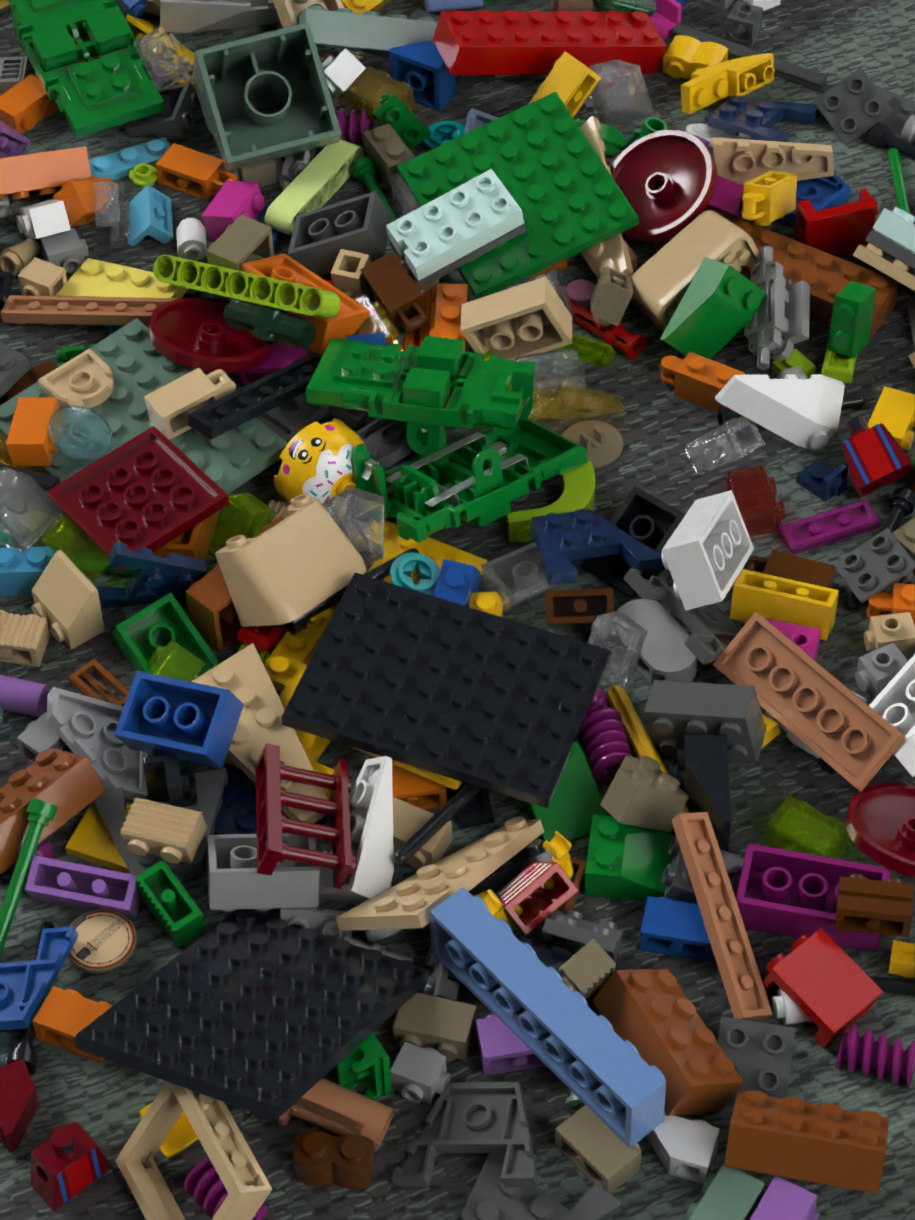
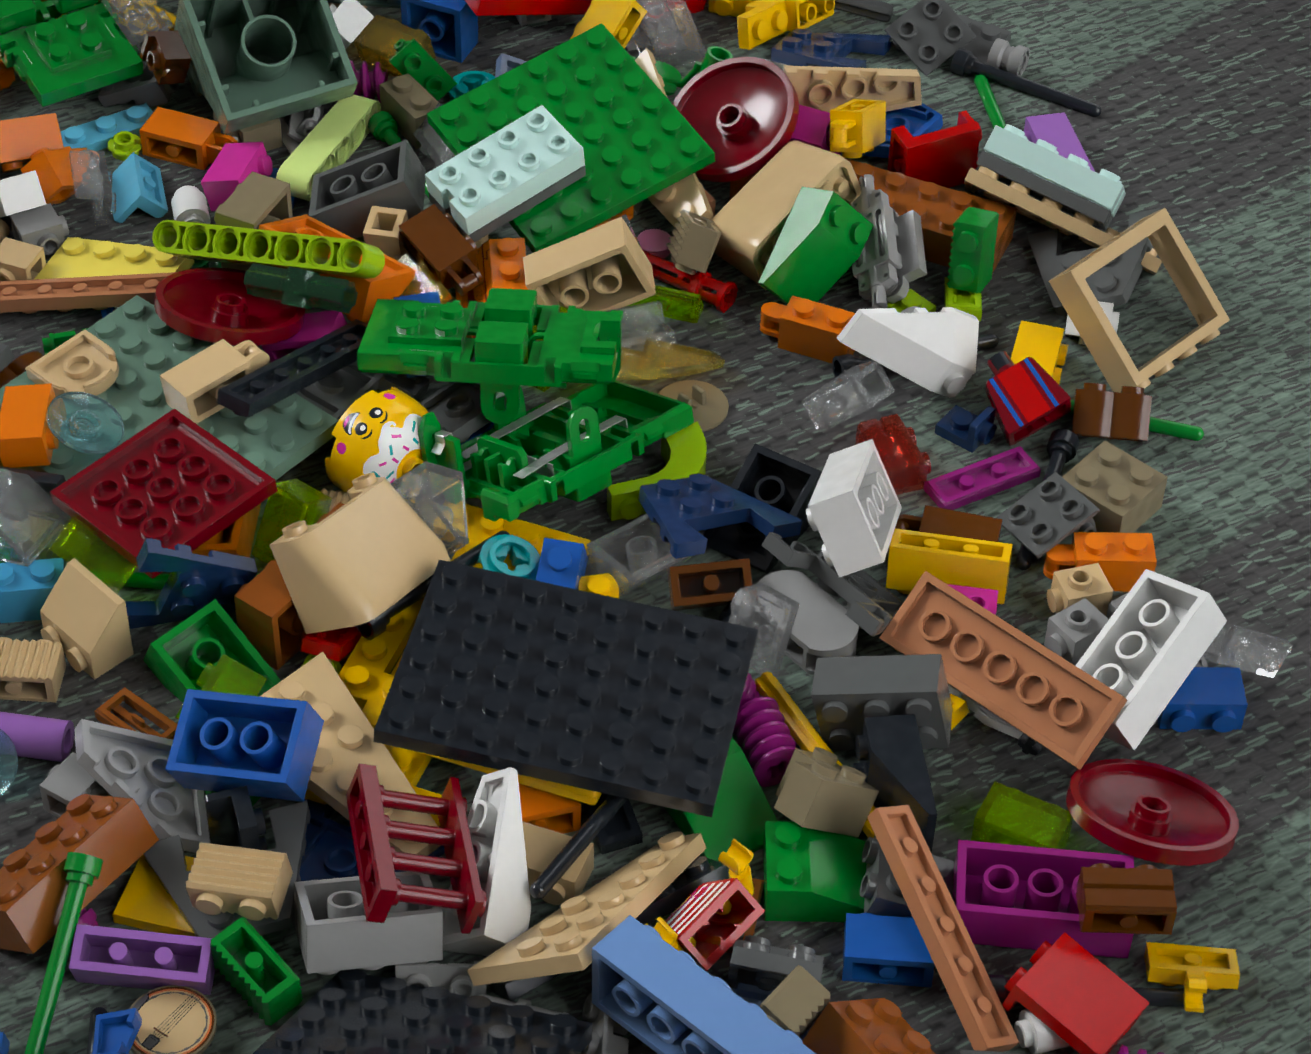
camera: 10 degrees left, 5 degrees down
(183, 98) = (166, 56): none -> reddish brown brick

